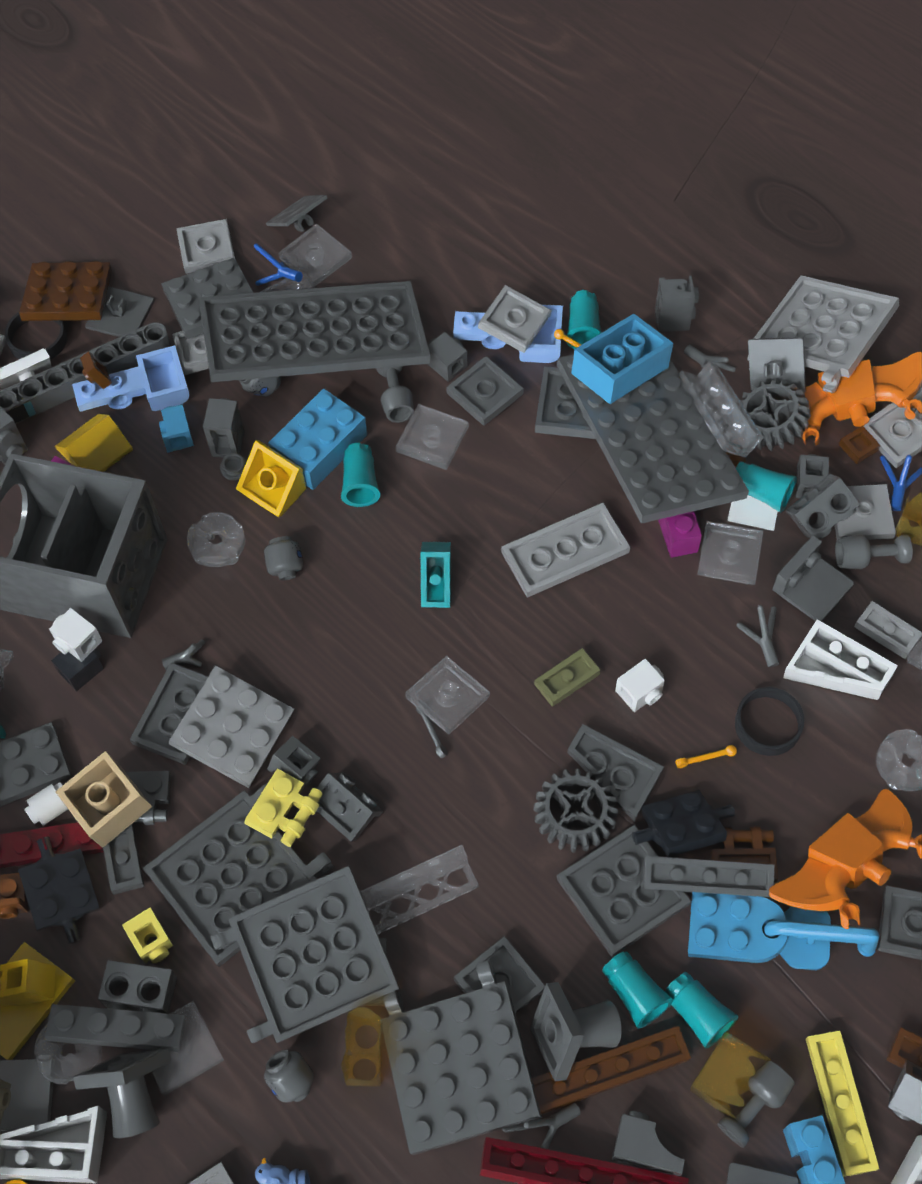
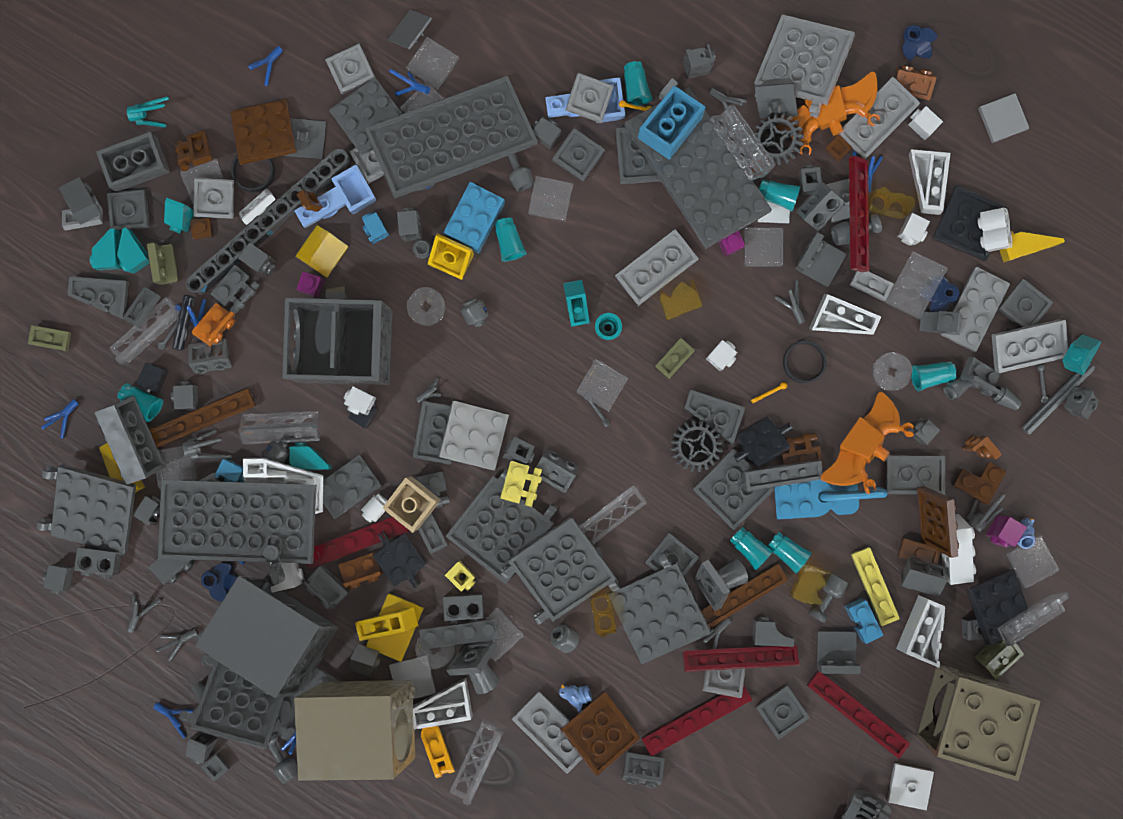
camera: 10 degrees left, 25 degrees up
(96, 216) = (270, 58): none -> blue plant
(473, 605) = (605, 320): none -> teal plant
(593, 599) = (681, 302): none -> clear yellow piece
(879, 527) = (859, 214): none -> dark red plate

